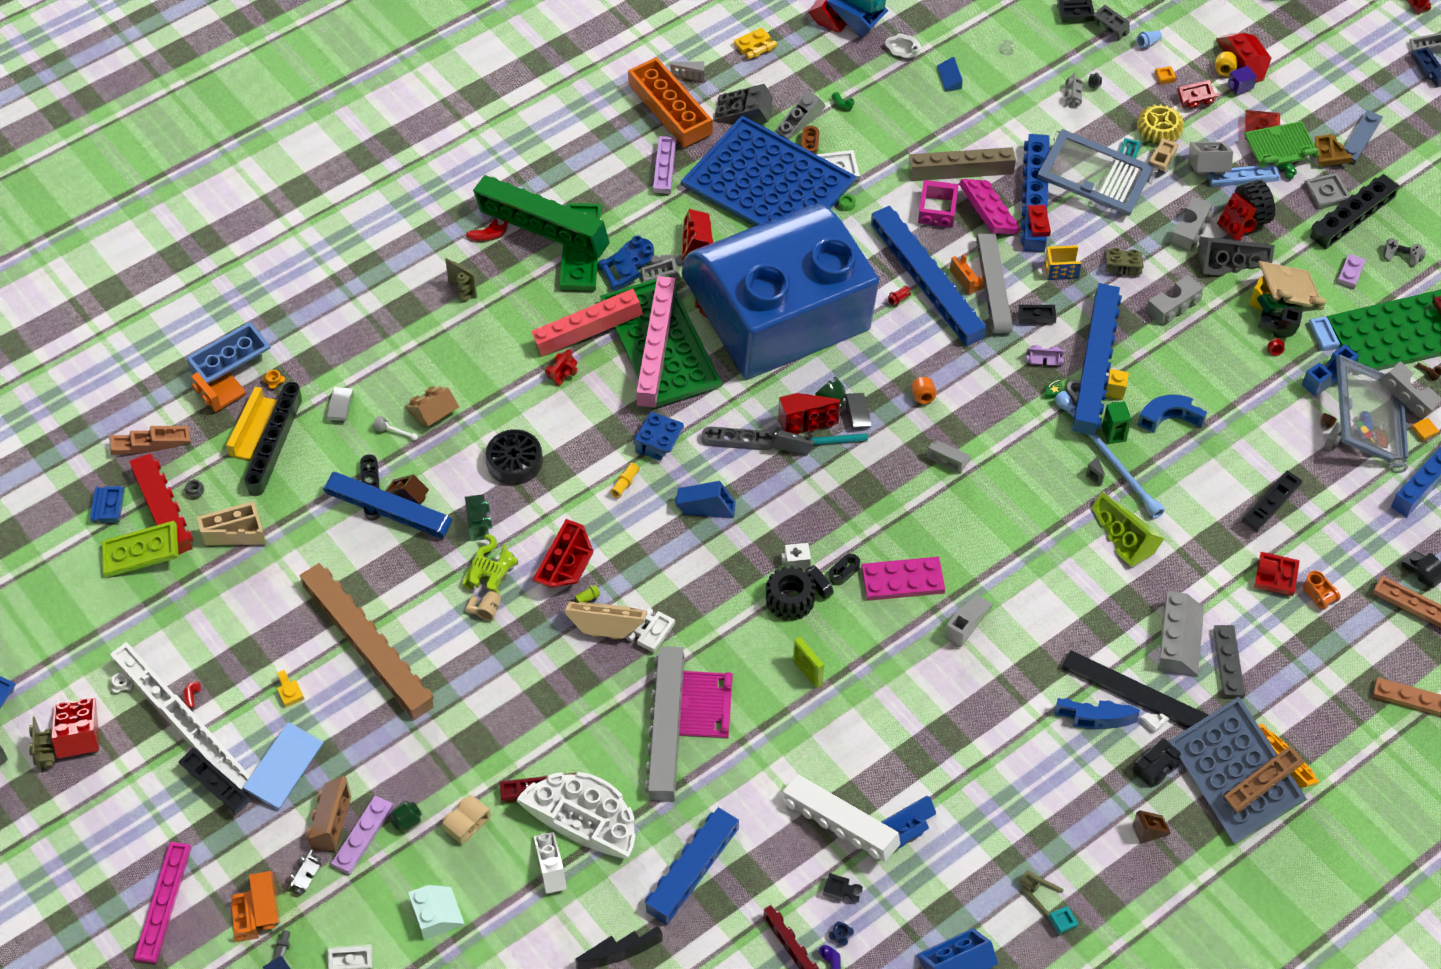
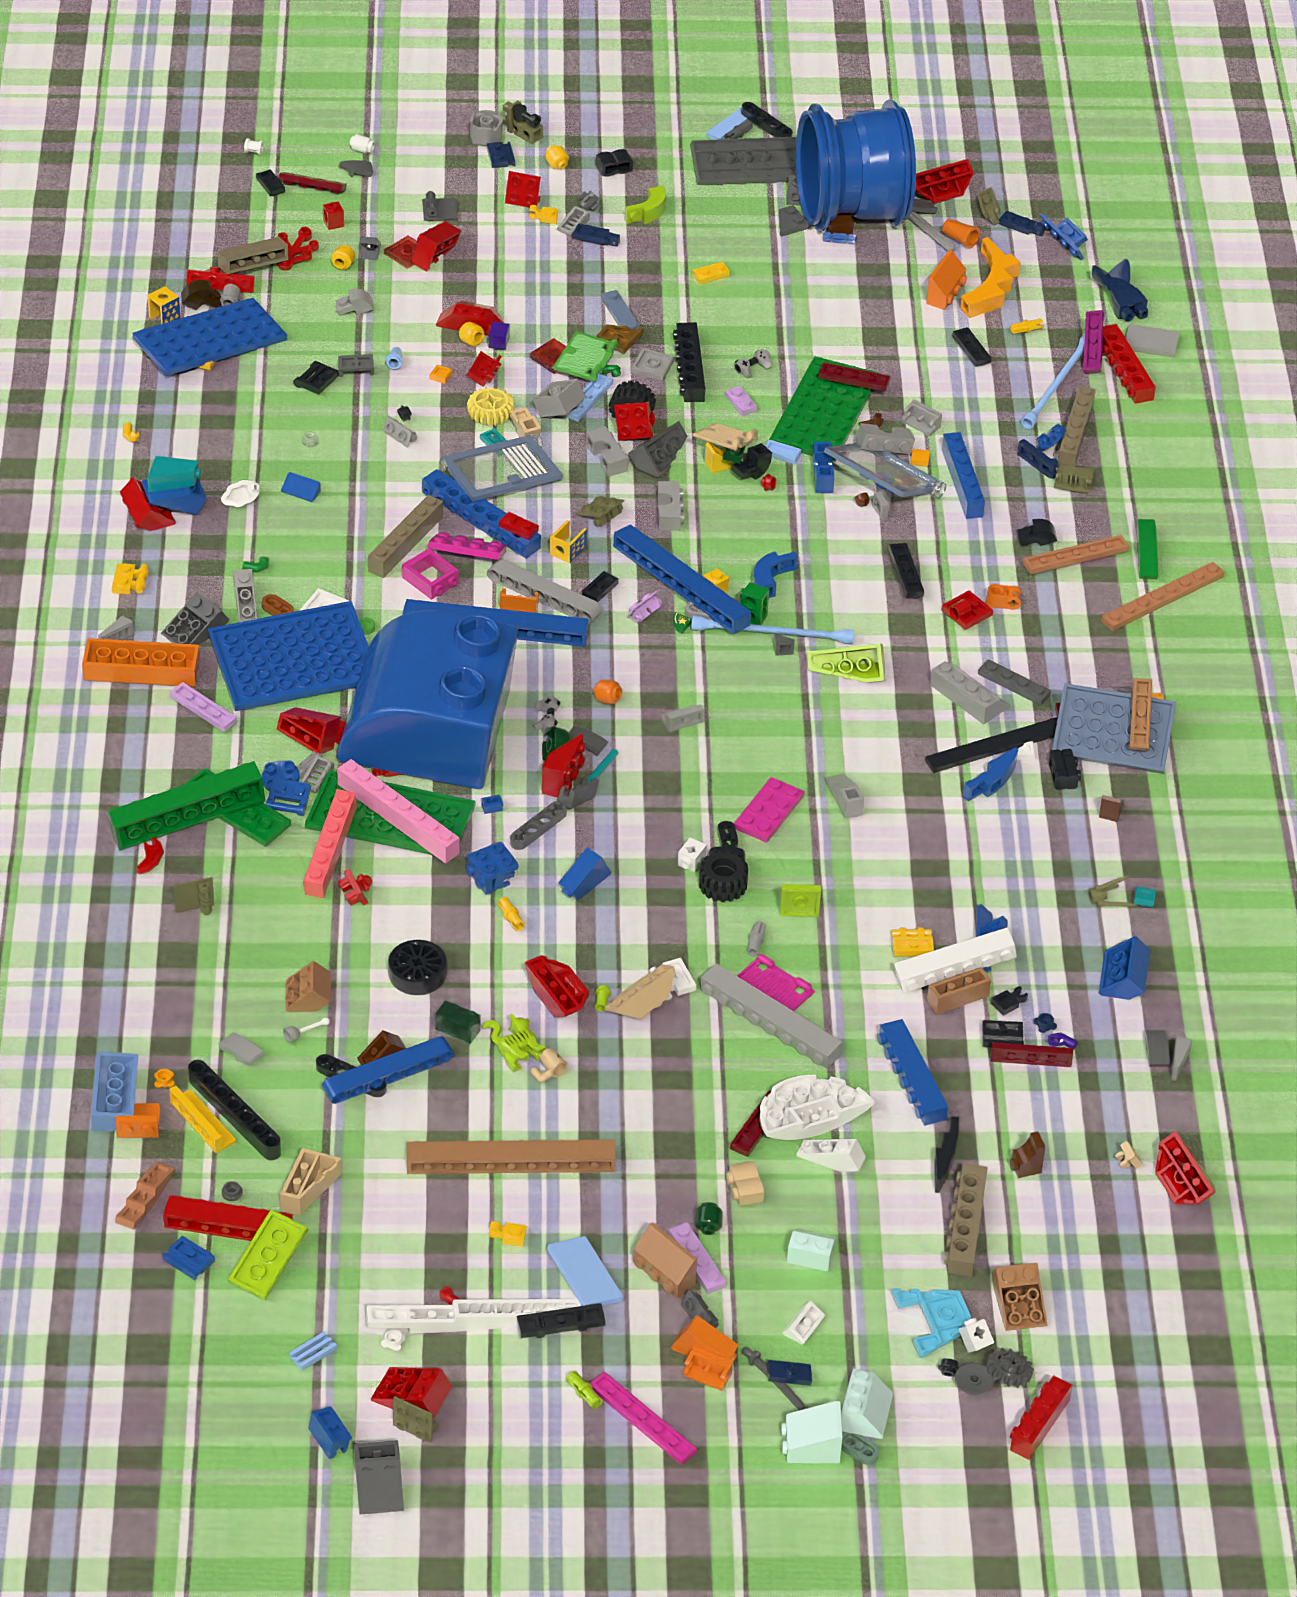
camera: 55 degrees left, 10 degrees down
(75, 635) = (310, 1349): none -> light blue tile
(161, 842) = (584, 1390): none -> lime pin
(732, 395) = (492, 804): none -> blue piece
(747, 659) = (756, 938): none -> light grey axle
(797, 907) = (1001, 1032): none -> black plate
(812, 842) = (959, 990): none -> medium nougat brick
(840, 777) = (911, 941): none -> yellow plate
(853, 374) = (550, 705): none -> light grey piece
(1416, 25) = (546, 215): none -> yellow plate

